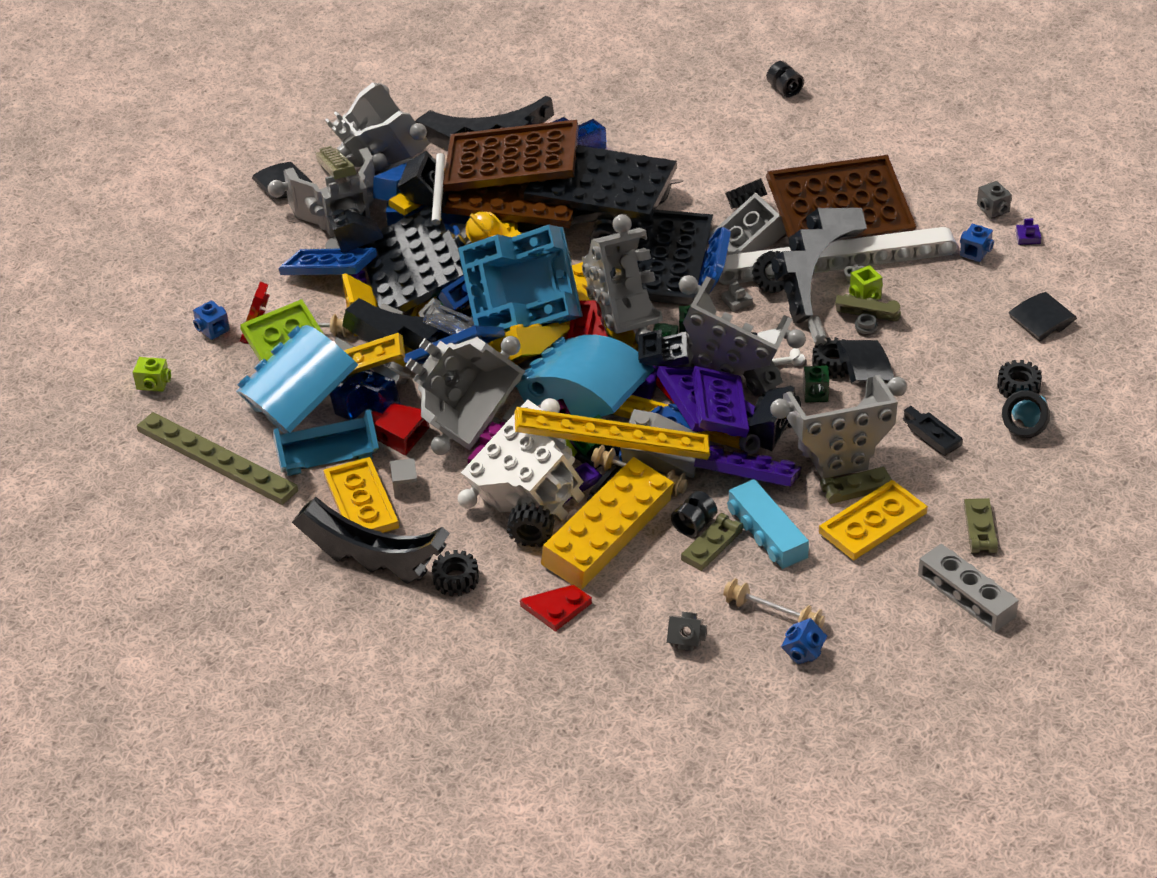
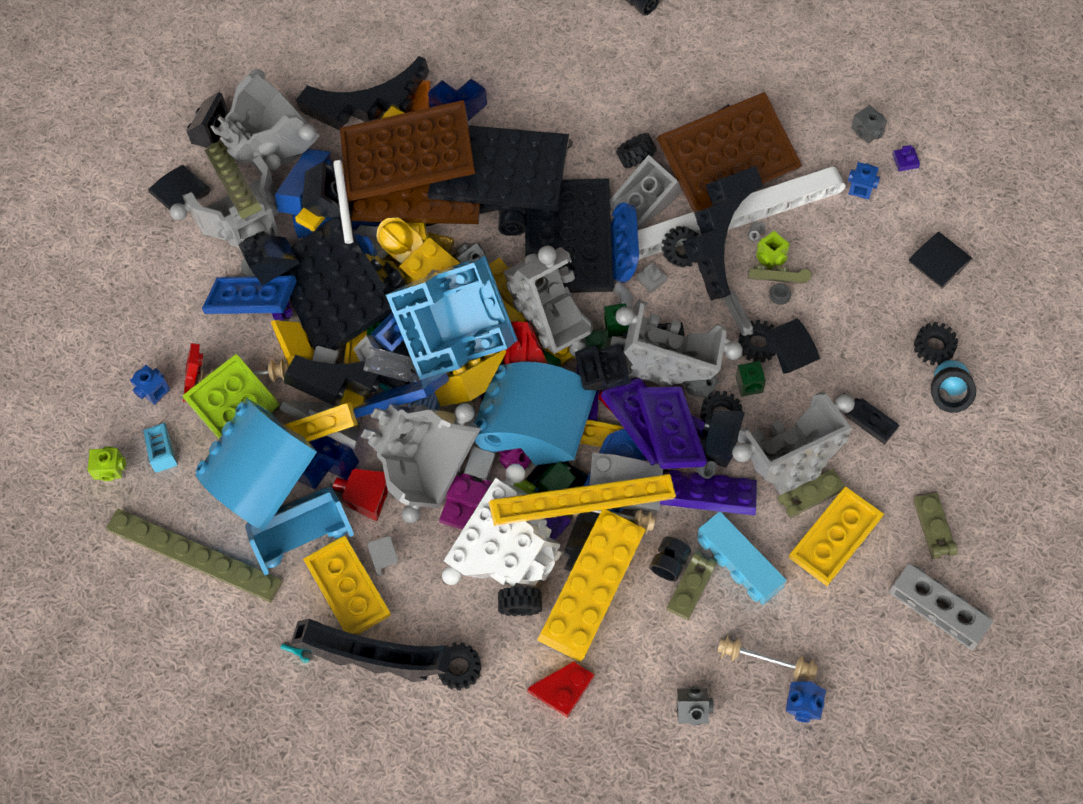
camera: 10 degrees left, 20 degrees up
(207, 376) = (164, 459): none -> medium azure slope
(302, 544) = (296, 651): none -> teal hand
(319, 133) = (206, 116): none -> black slope

